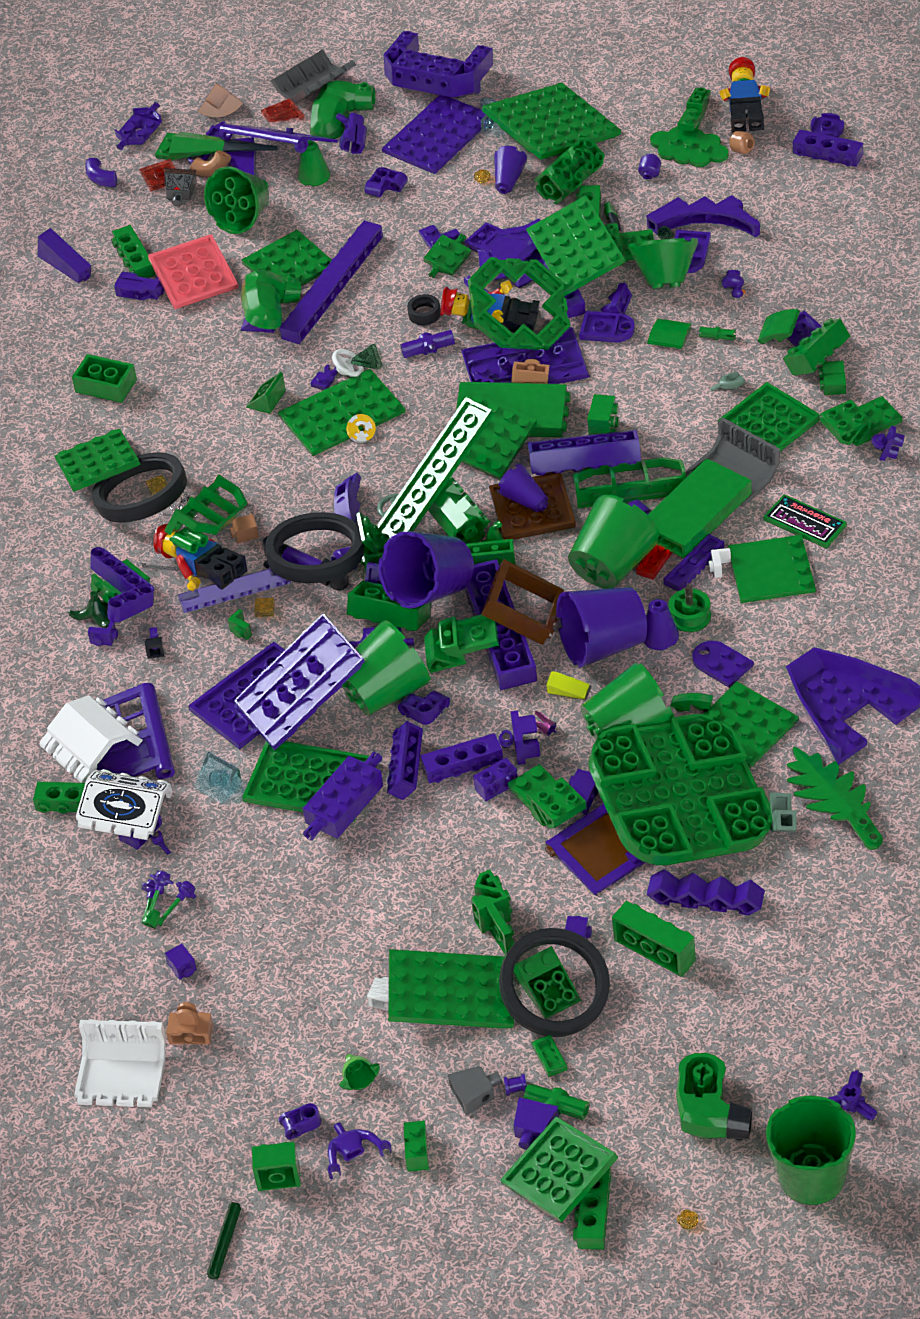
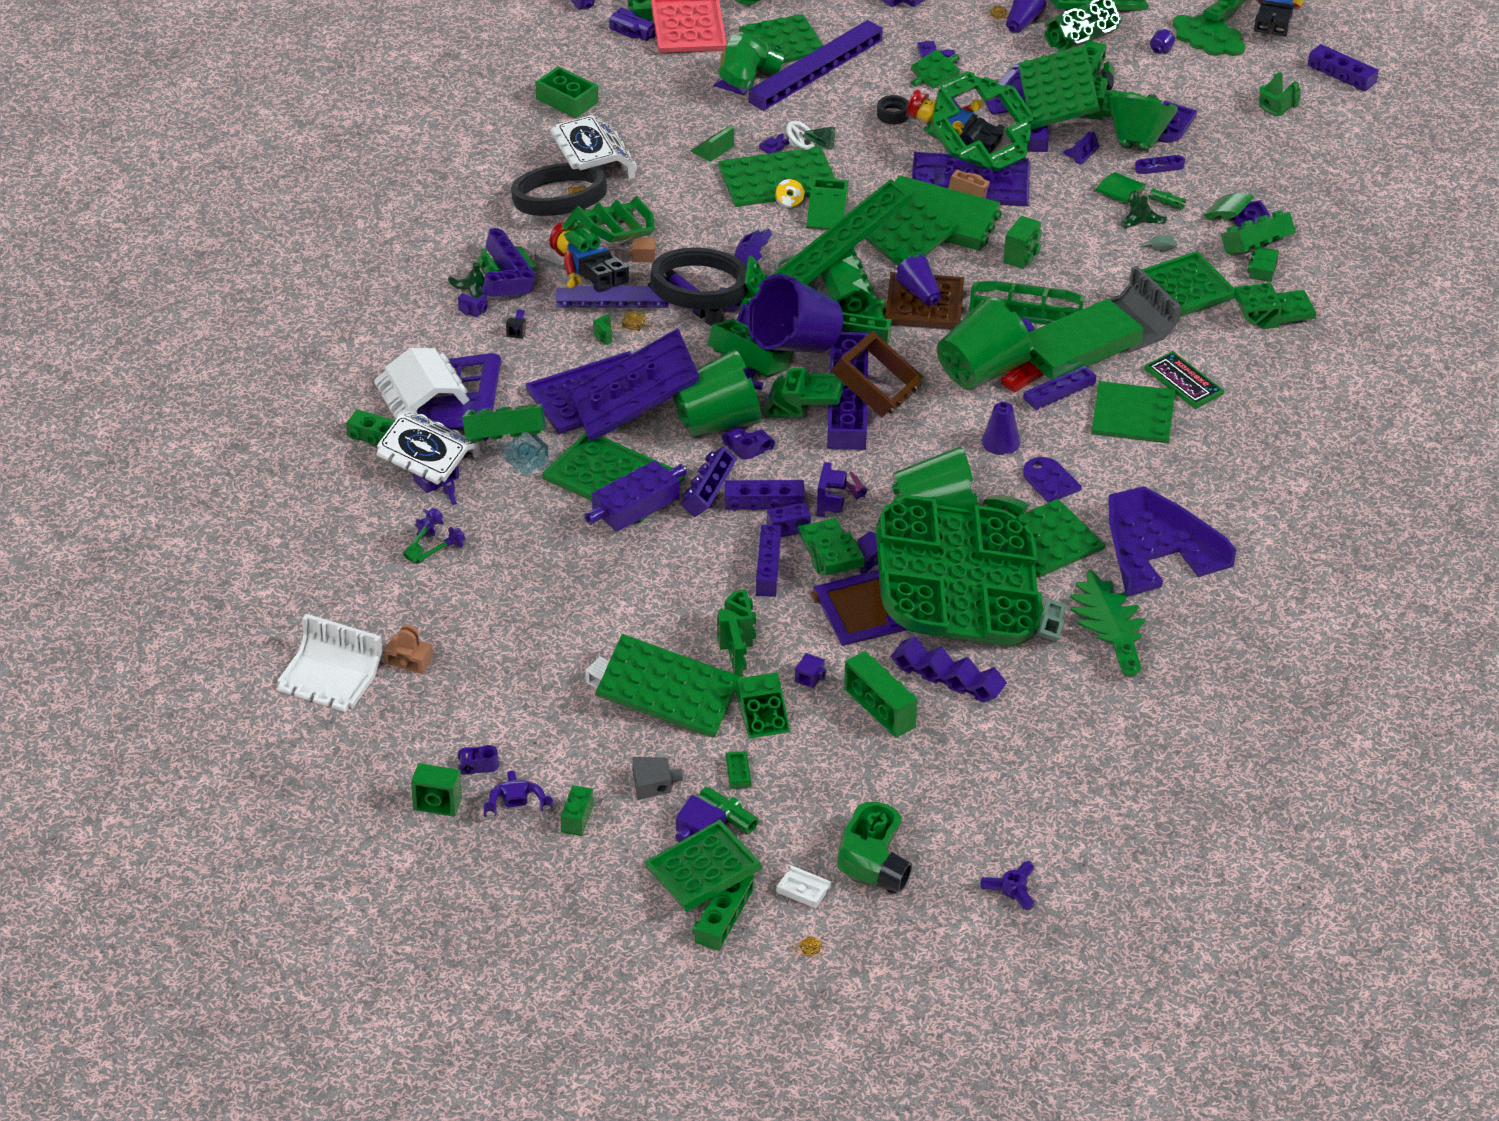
camera: 10 degrees right, 5 degrees down
(96, 460) = (528, 157): green plate -> none
(153, 431) = (591, 143): none -> white hinge
(180, 961) = (424, 595): dark purple brick -> none
(189, 757) = (503, 422): none -> green wedge
(223, 1240) = (362, 842): dark green axle -> none
(358, 1073) = (549, 733): green hat -> none
(401, 429) = (827, 202): none -> green slope
(427, 343) = (884, 138): dark purple piece -> none
(493, 827) = (768, 560): none -> dark purple brick
(501, 244) = (987, 66): dark purple plate -> none
(506, 734) = (811, 487): dark purple pin -> none
(515, 1084) = (694, 784): dark purple bush -> none
(566, 686) = (889, 458): neon yellow slope -> none
(579, 945) = (782, 663): black tyre -> none
(584, 452) = (992, 265): dark purple brick -> none
(600, 623) = (944, 410): dark purple cone -> none
(606, 327) = (1062, 167): dark purple plate -> none
(657, 1160) = (803, 887): none -> white plate
(690, 609) = (1038, 424): green wheel -> none
(698, 355) = (1141, 212): none -> dark green piece
(705, 293) = (1143, 166): none -> dark purple beam
(719, 556) = (1085, 388): white bracket -> none
(726, 212) = (1198, 91): dark purple arch -> none
(734, 281) = (1202, 159): dark purple animal -> none
(741, 142) = (1260, 42): nougat head -> none
(784, 204) = (1279, 99): none -> green piece
(811, 1148) = (950, 909): green cone -> none
(820, 124) = (1353, 48): dark purple plate -> none
(885, 443) = (1285, 328): dark purple hips -> none

